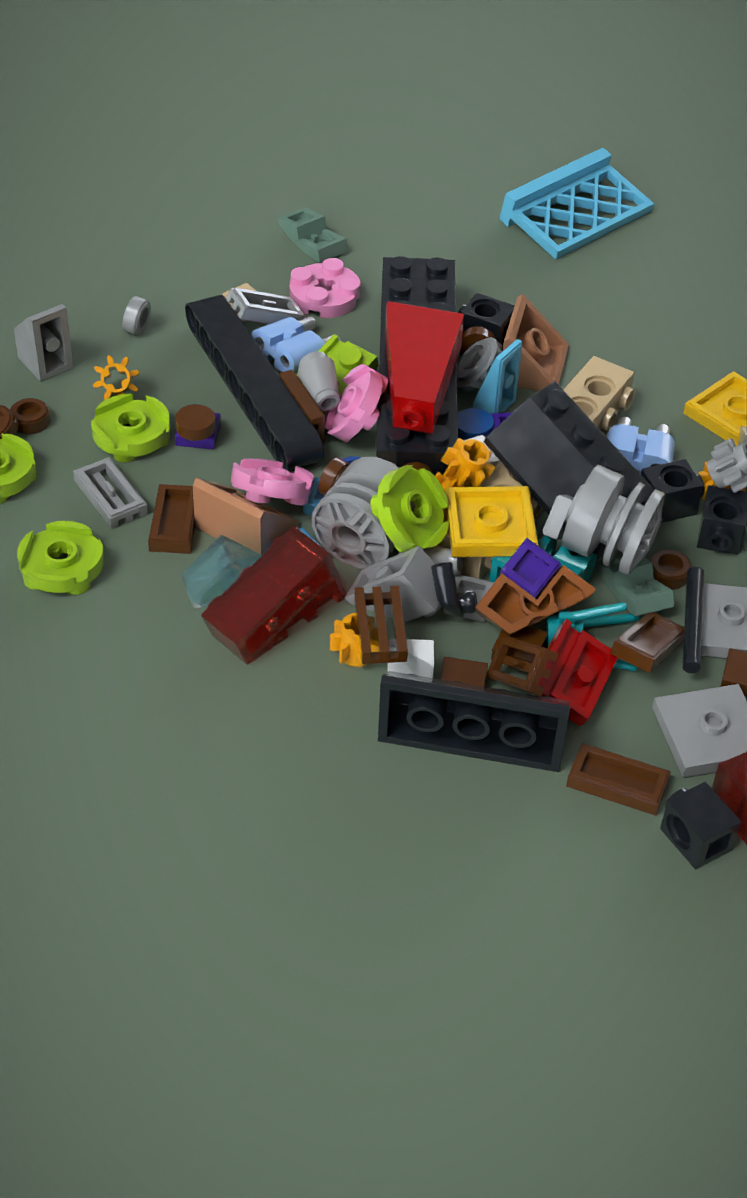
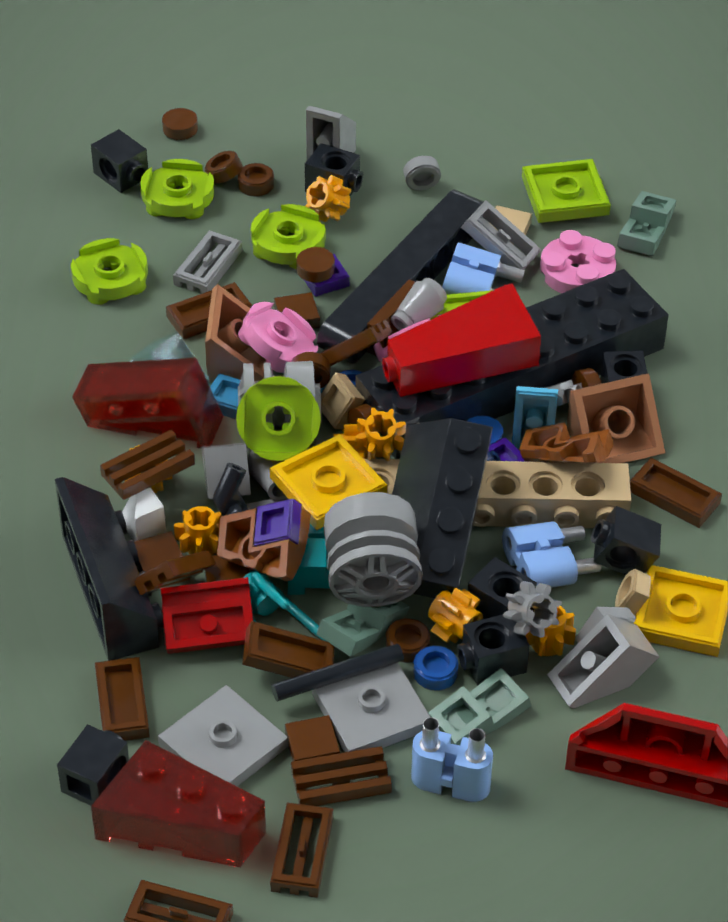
camera: 60 degrees right, 0 degrees up
(76, 362) = (337, 162): none -> black brick
(222, 461) = (301, 304): none -> reddish brown tile
(236, 254) = (565, 190): none -> lime plate
(336, 435) = (357, 342): none -> reddish brown tile
(464, 635) = (198, 530): none -> light orange gear
(559, 366) = (555, 445): none -> dark orange slope
(628, 353) = (675, 492): none -> reddish brown tile
(667, 398) = (626, 541): none -> black brick
(678, 525) = (451, 612): none -> light orange gear
(714, 422) = (633, 590): none -> tan tile
(715, 564) = (435, 668): none -> blue tile

